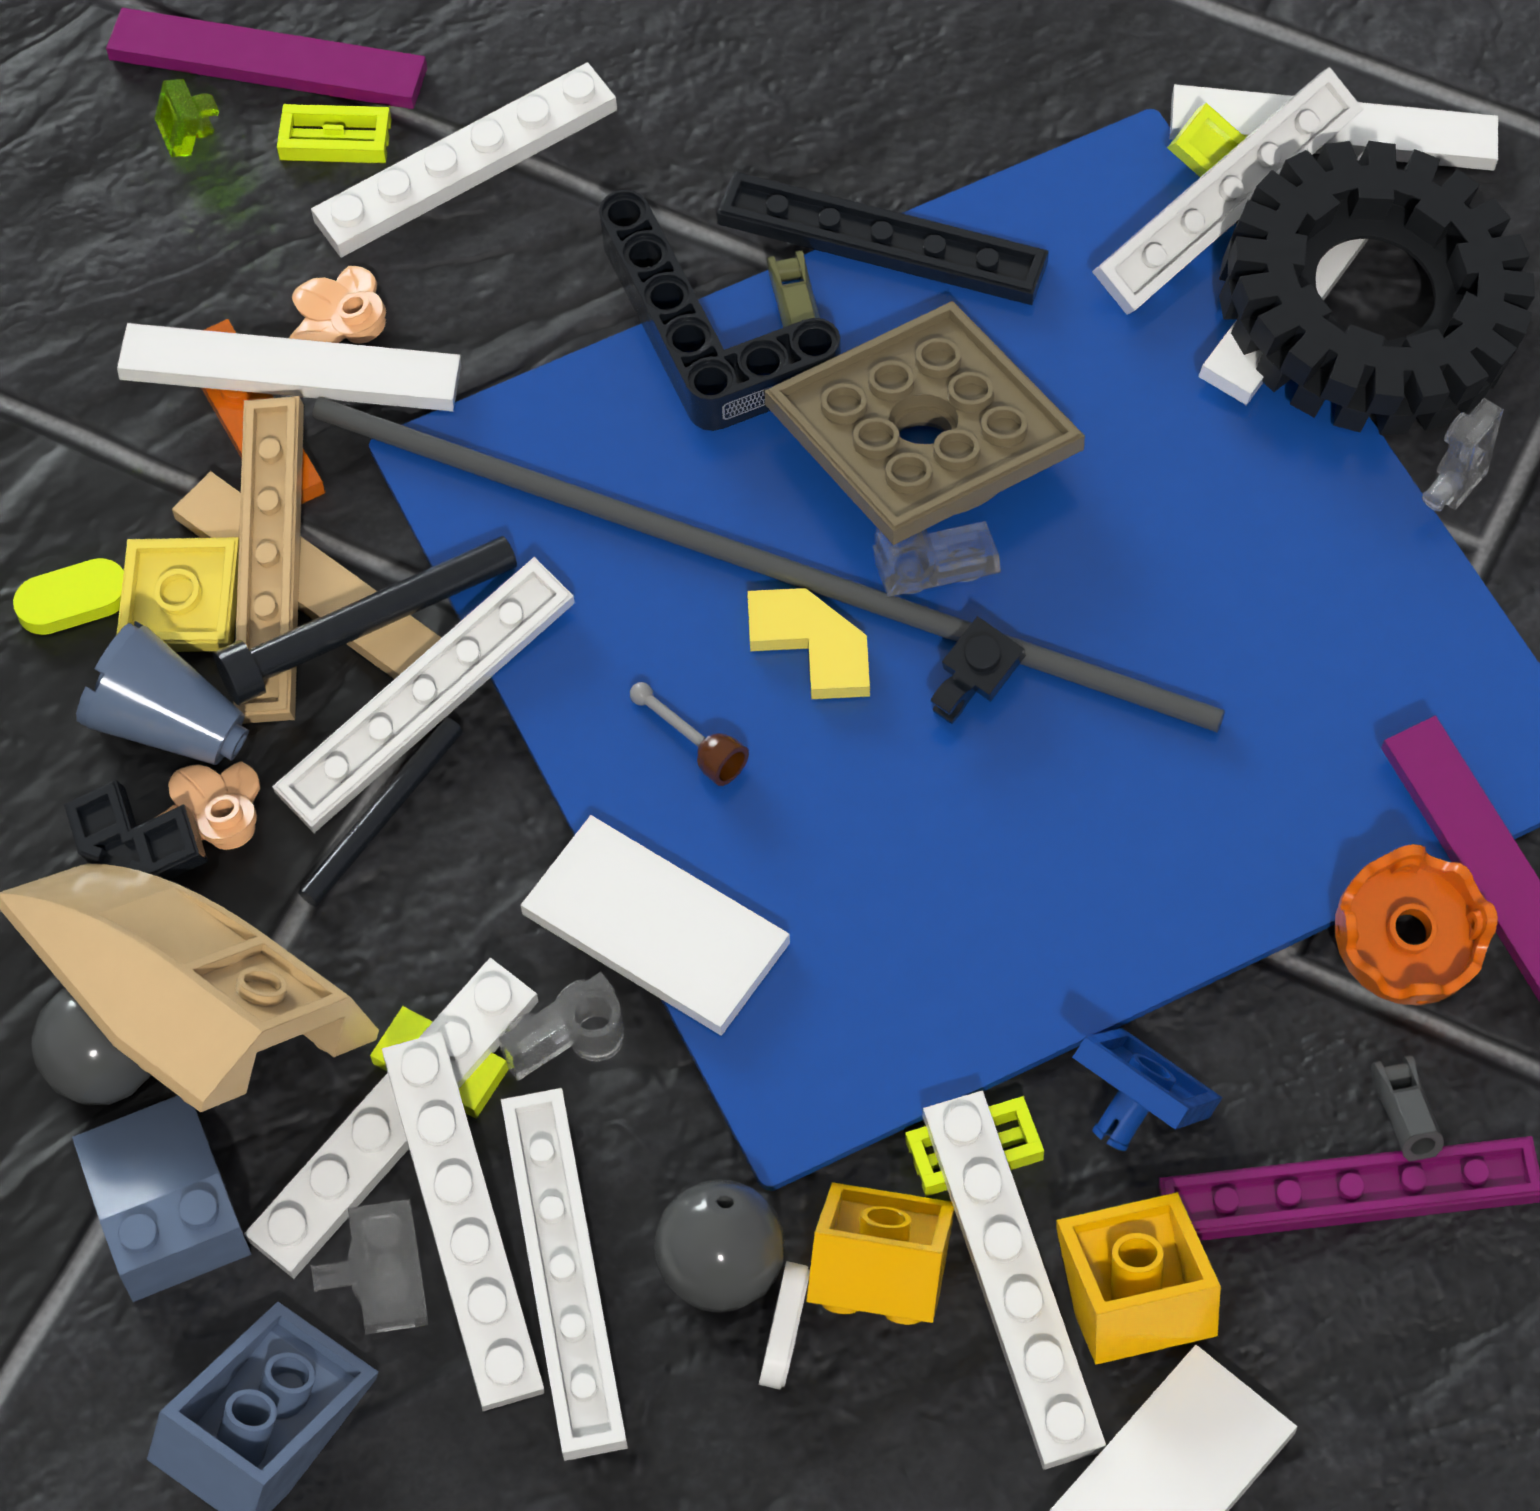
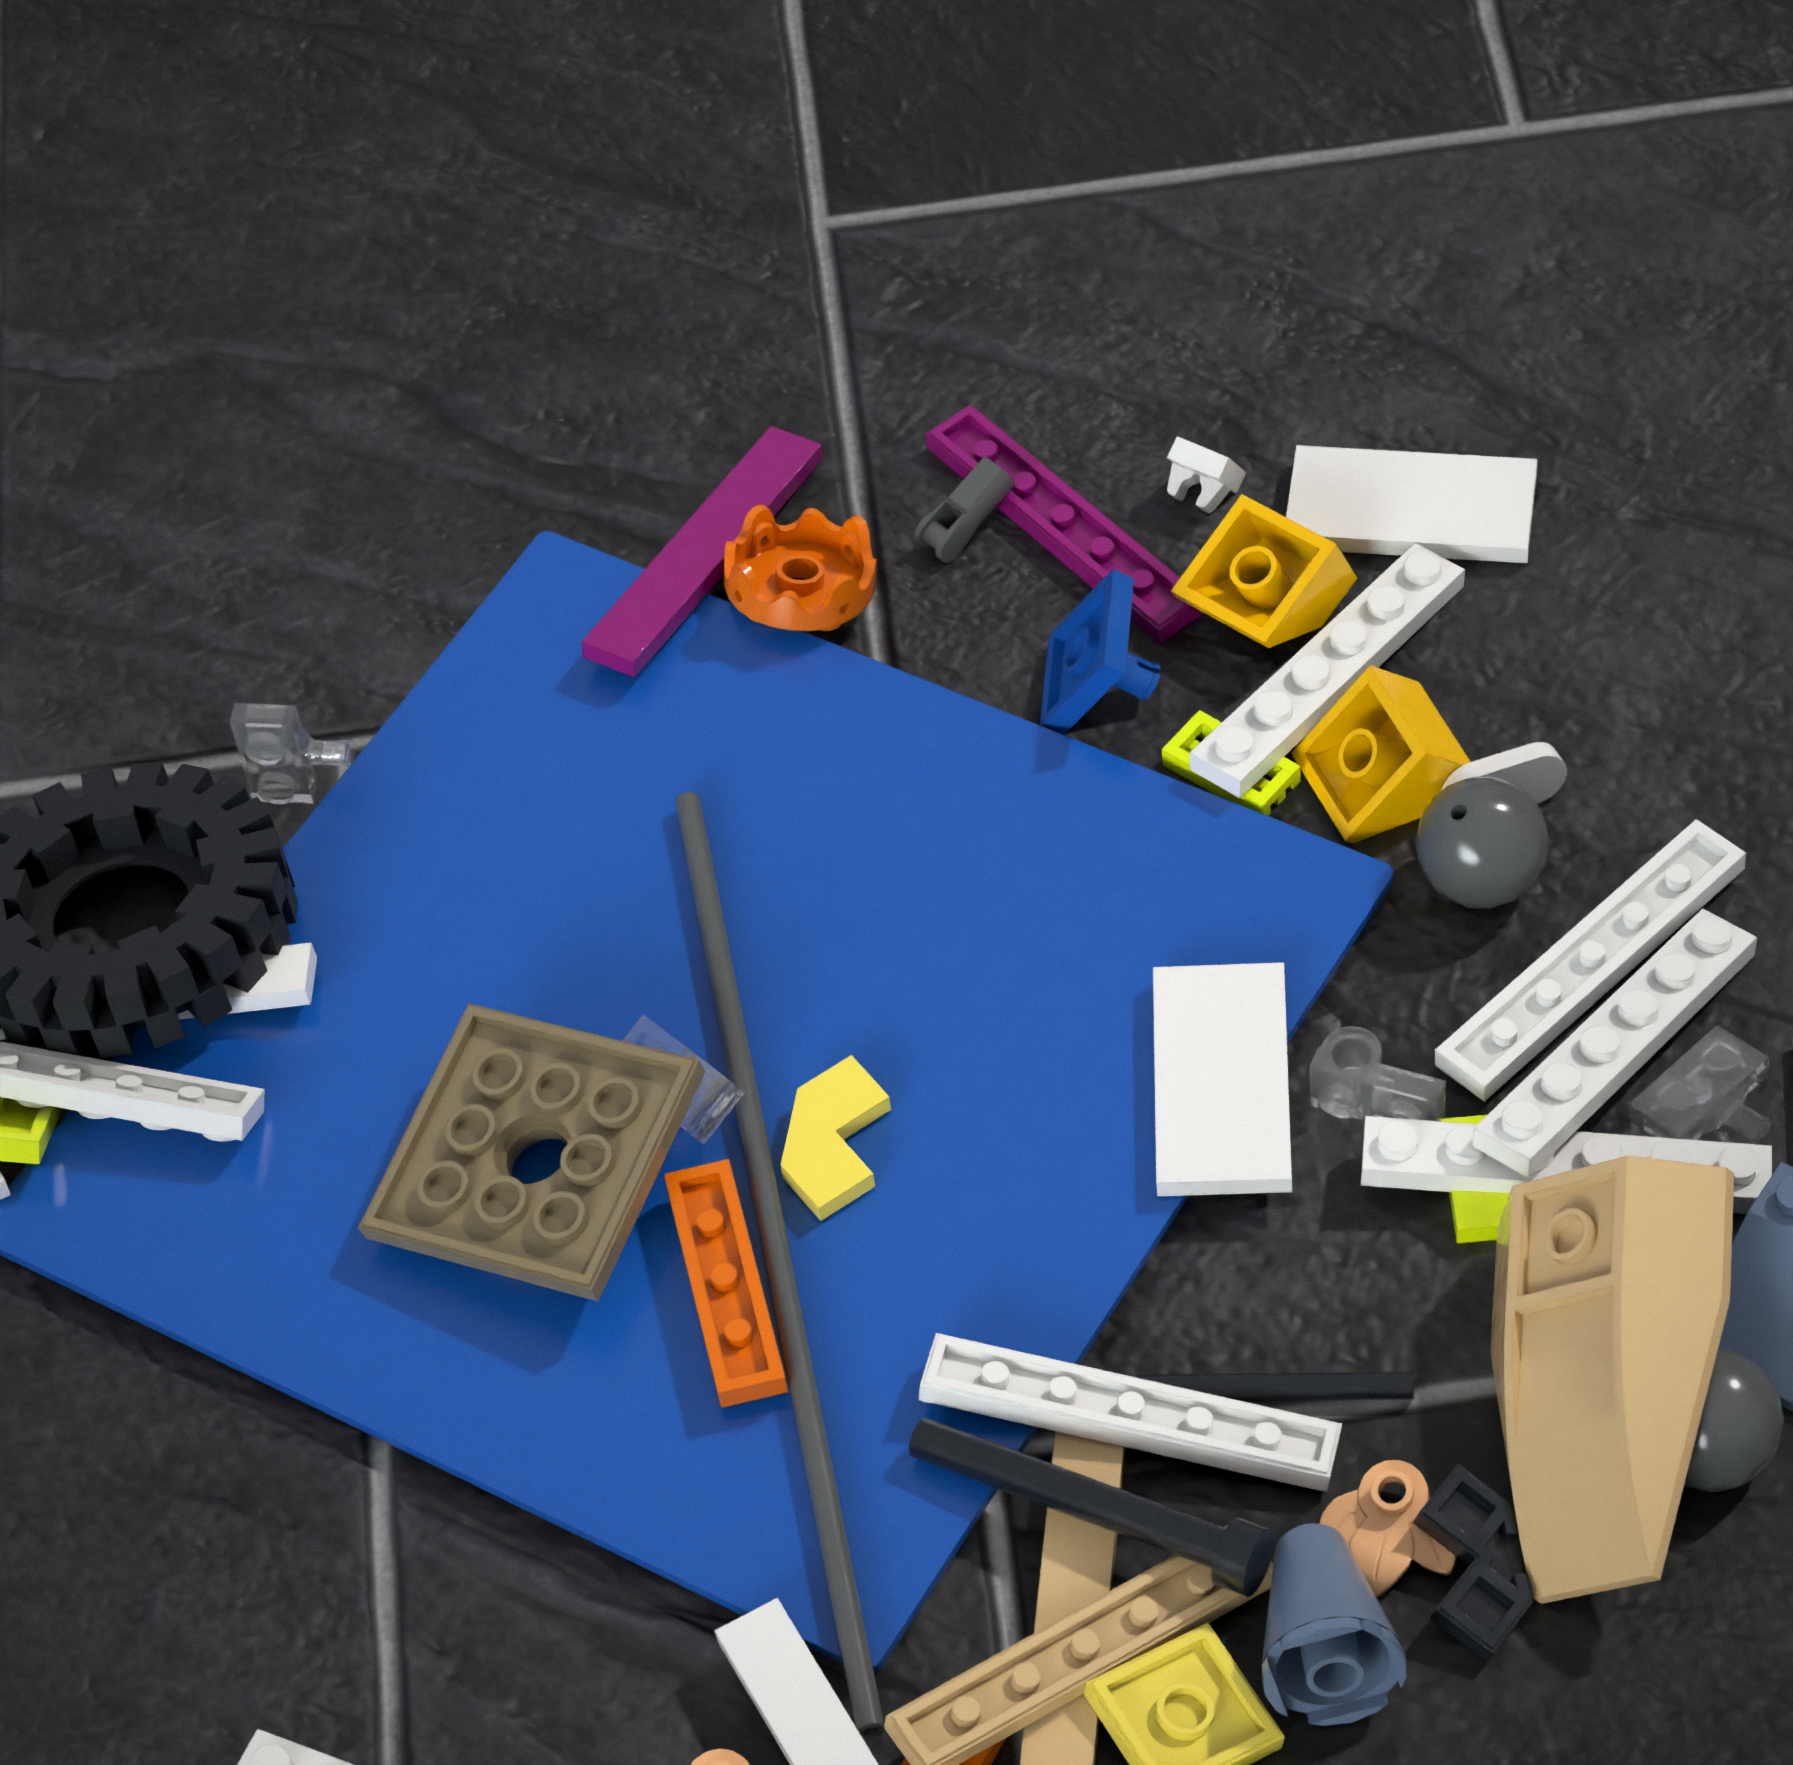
camera: 120 degrees left, 10 degrees down
(686, 326) = (536, 1438): black beam -> none
(719, 754) = (1015, 1125): reddish brown hinge -> none
(732, 501) = (725, 1283): none -> orange plate
(795, 299) = (439, 1374): olive bar -> none
(883, 237) = (302, 1364): black tile -> none
(979, 664) = (766, 984): black plate -> none
(1319, 1328) = (1198, 464): none -> white tile

